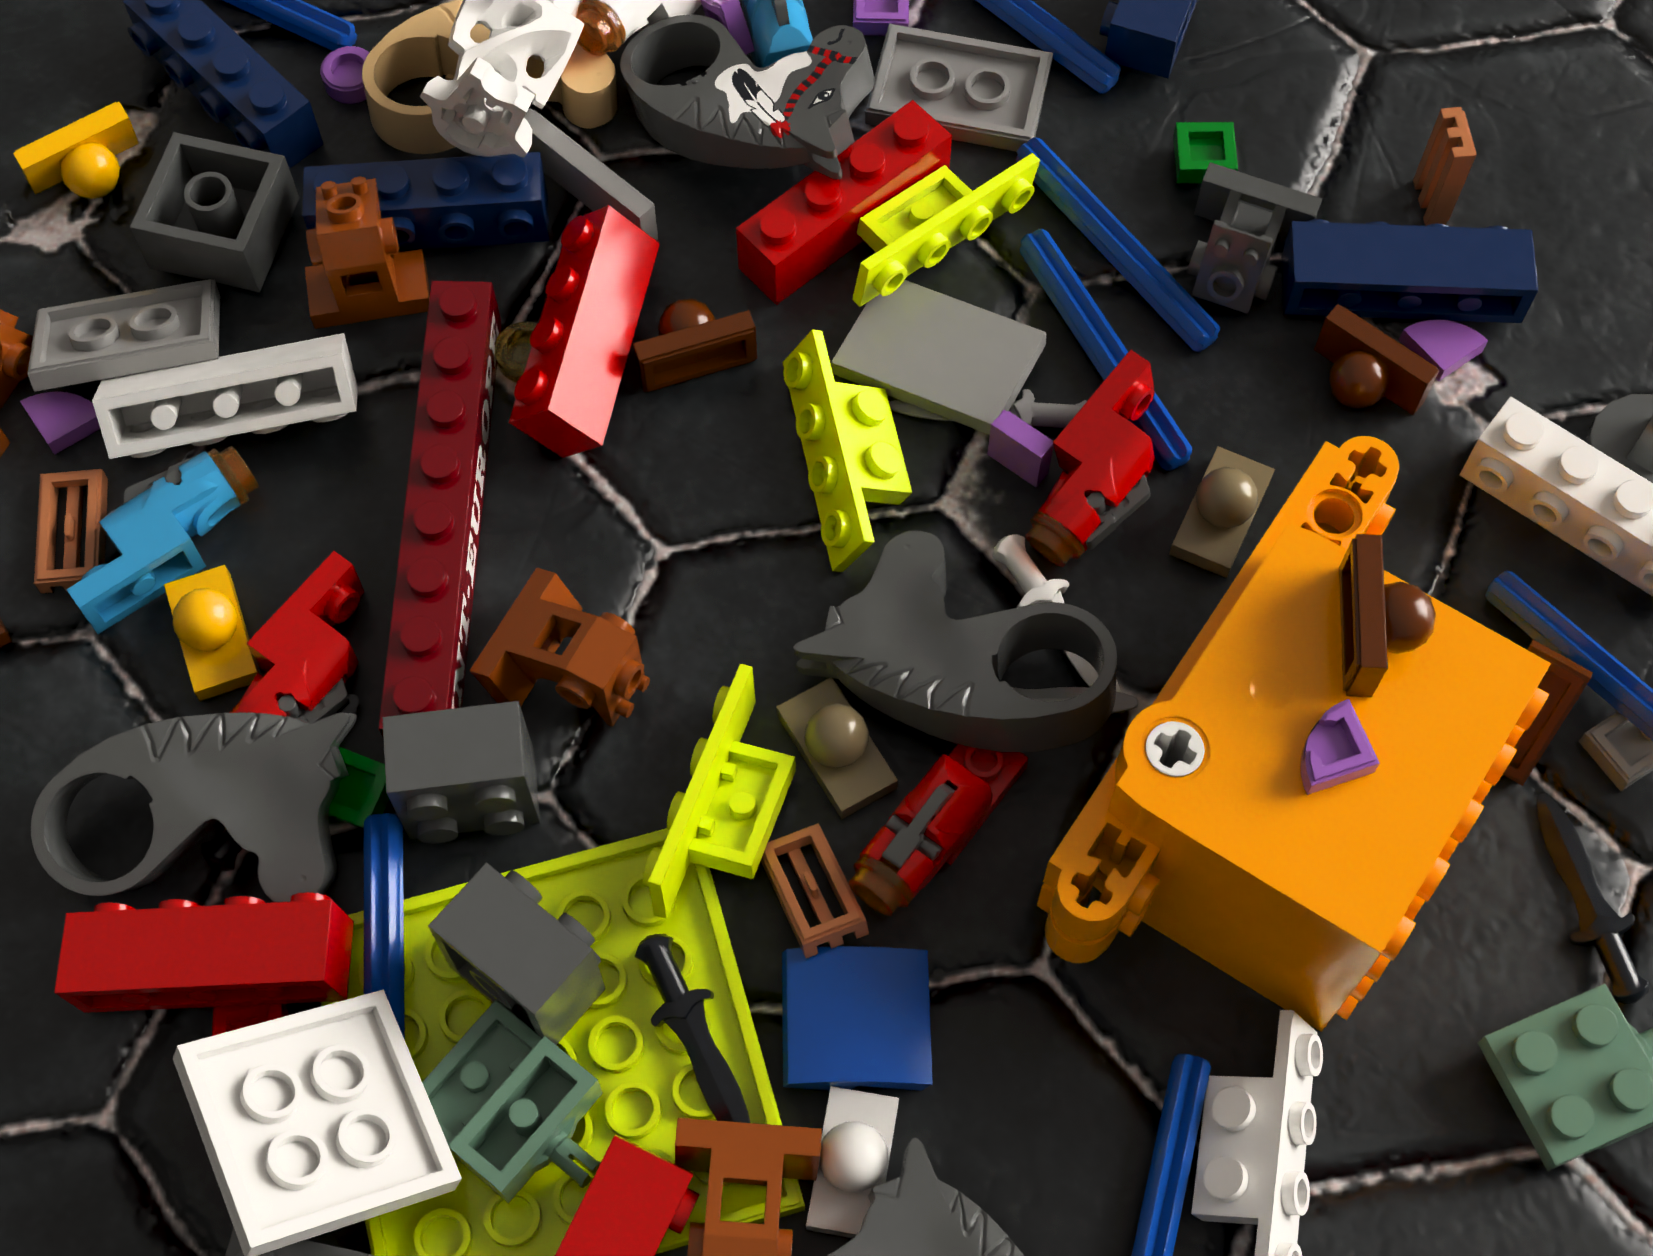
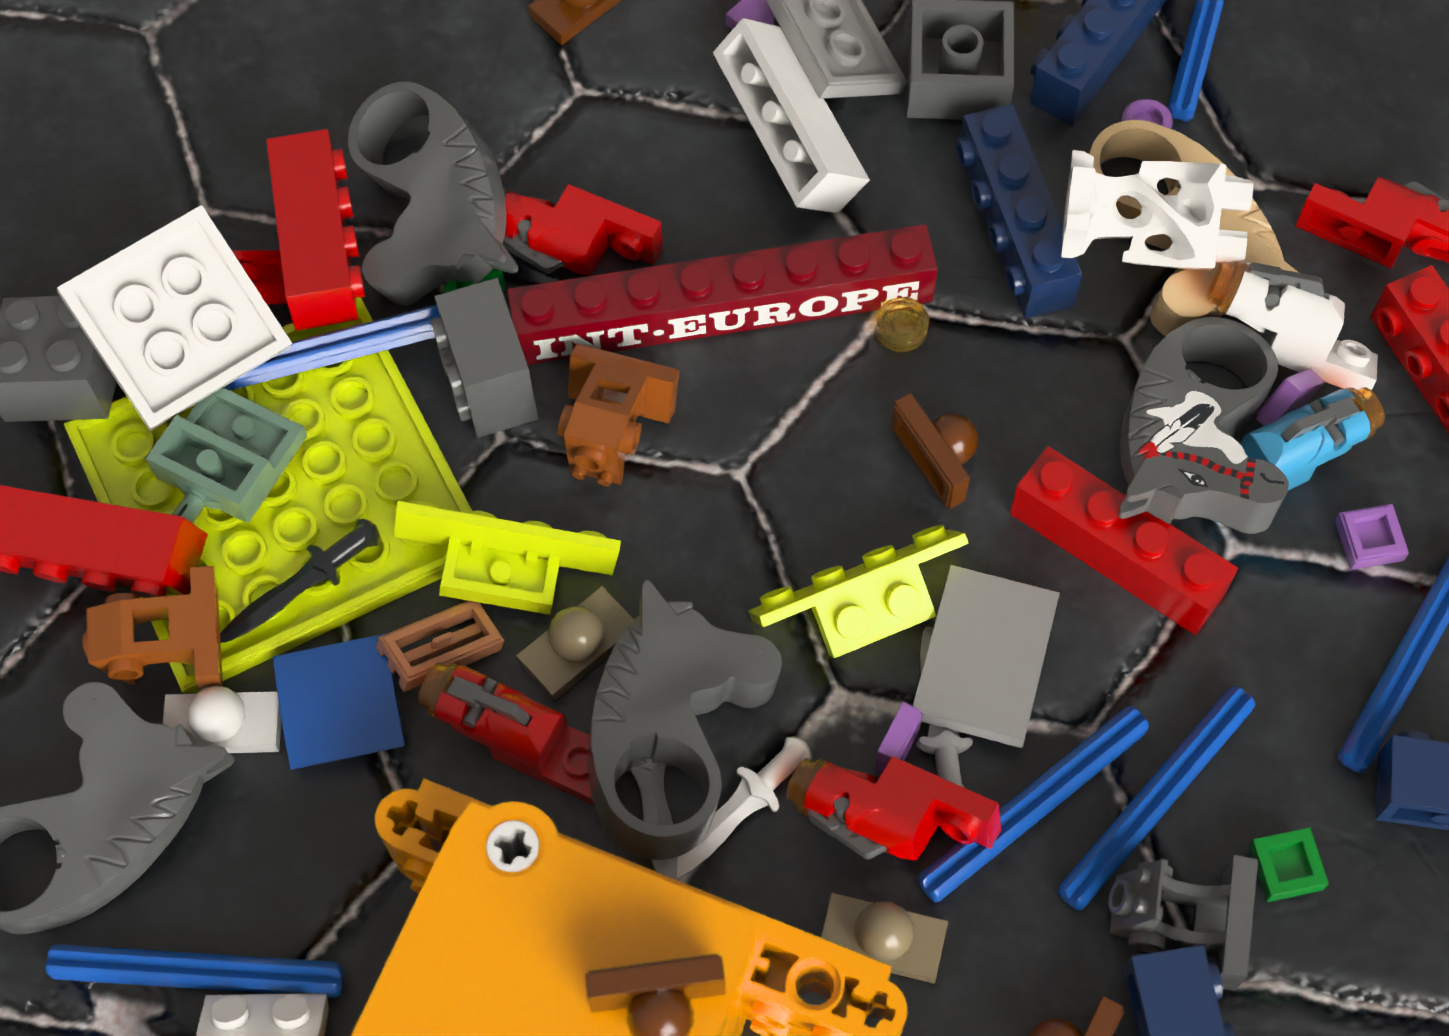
camera: 80 degrees right, 0 degrees up
(46, 575) = (661, 60): nougat tile -> none
(156, 533) = (663, 105): dark azure plate -> none
(211, 632) = (593, 163): yellow tile -> none
(356, 247) = (935, 167): dark orange tile -> none
(520, 952) = (328, 427): dark grey brick -> none
(584, 332) = (920, 355): brick -> none
(587, 176) = (1083, 328): light grey tile -> none
(932, 218) = (1122, 617): neon yellow bracket -> none
(968, 85) = (1299, 625): light grey tile -> none
(1336, 750) = (528, 981): medium lavender tile -> none

